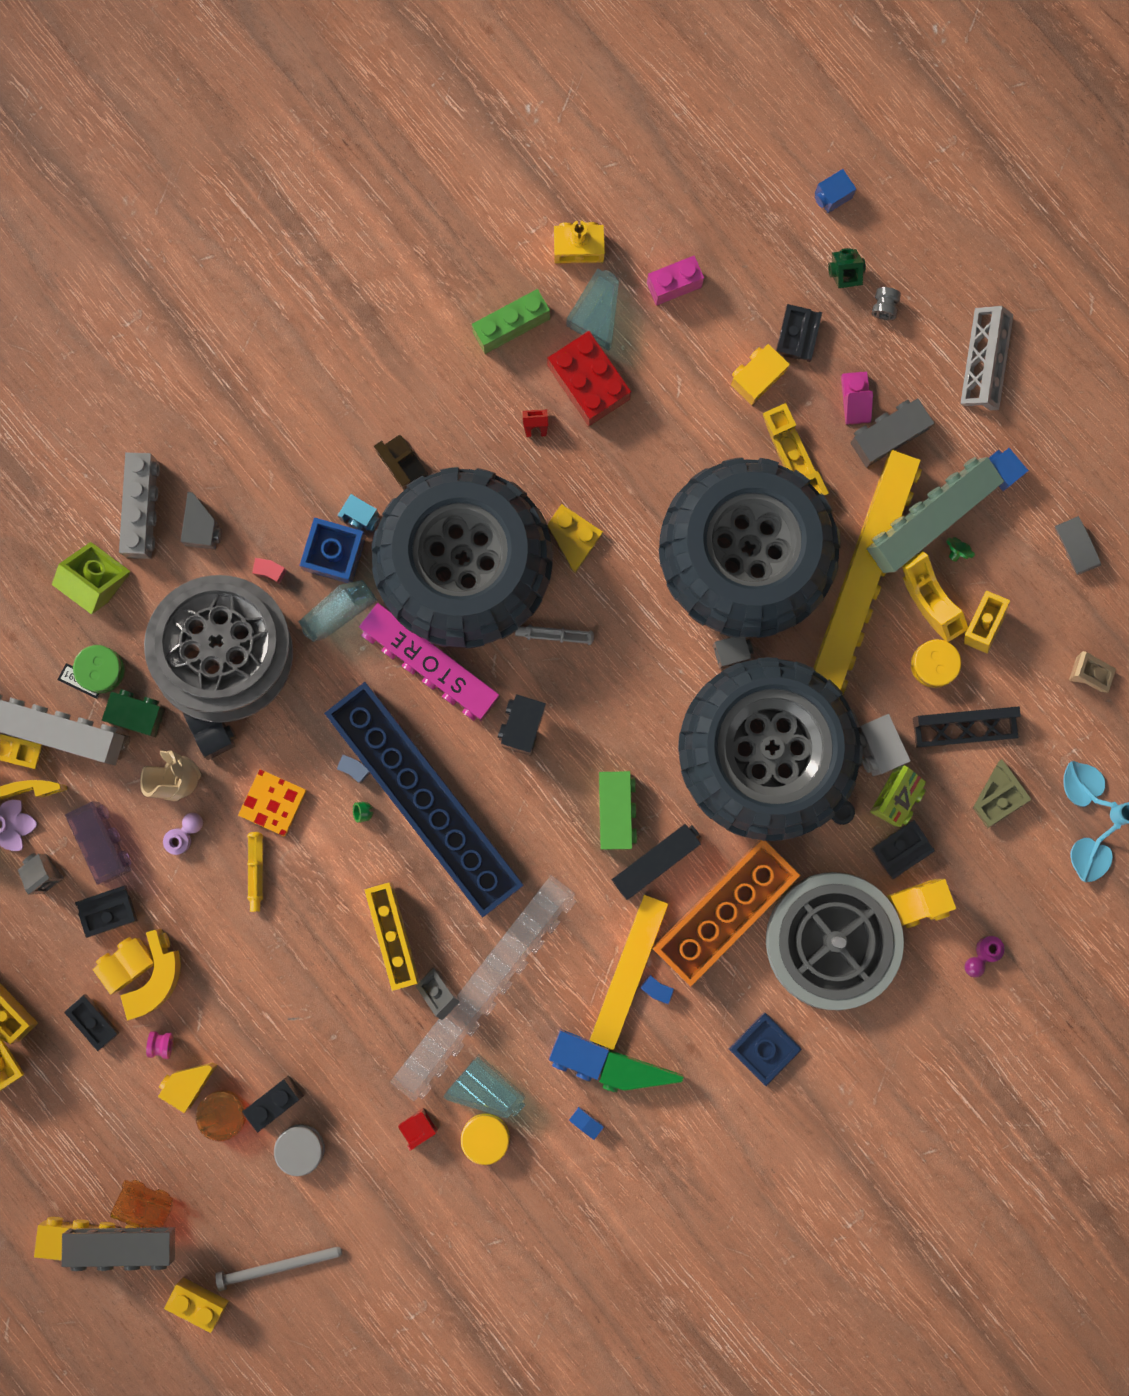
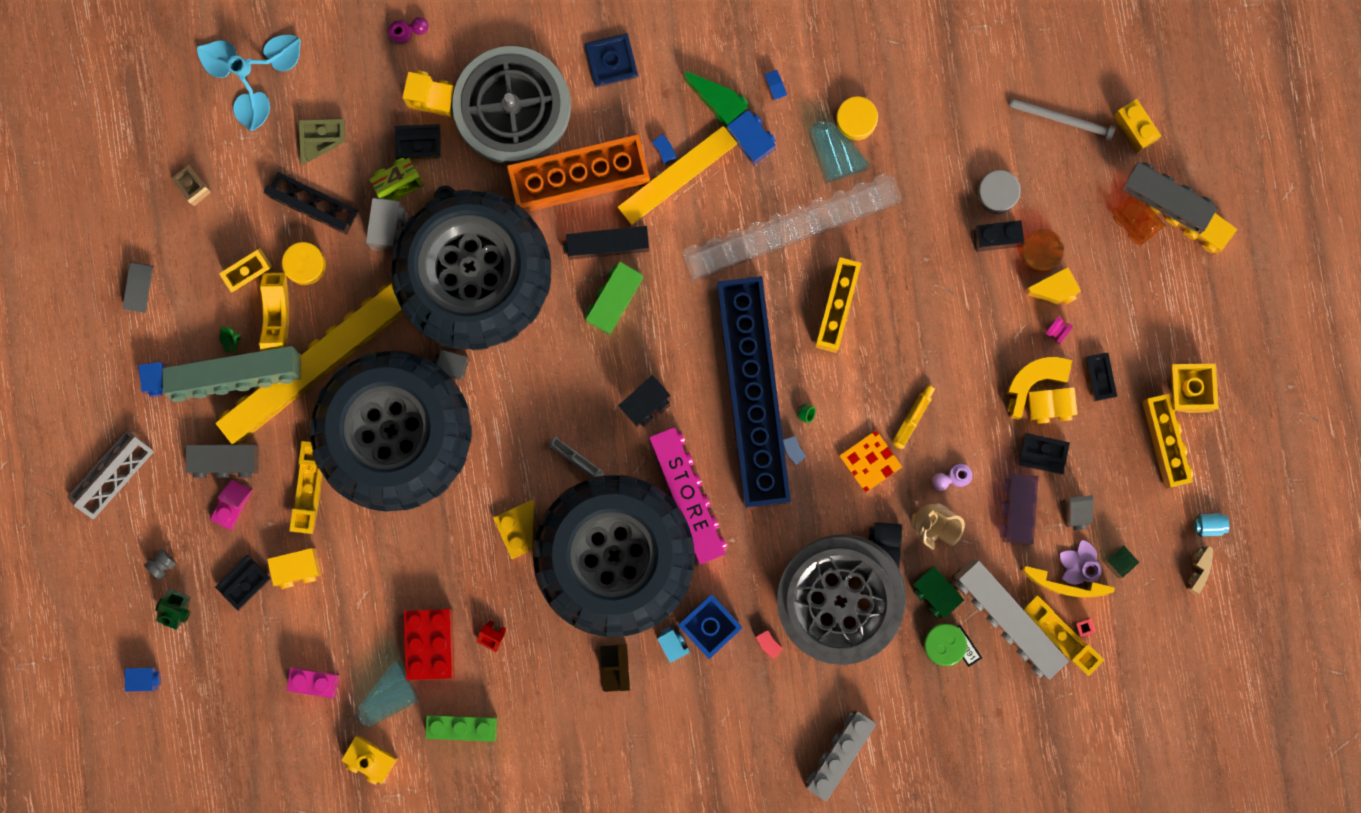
camera: 145 degrees left, 0 degrees up
(90, 577) = (910, 721): lime slope -> none
(199, 526) = (801, 711): dark grey slope -> none
(336, 610) = (734, 578): clear light blue slope -> none
(417, 1129) = (902, 154): red panel -> none
(437, 994) = (829, 241): dark grey plate -> none

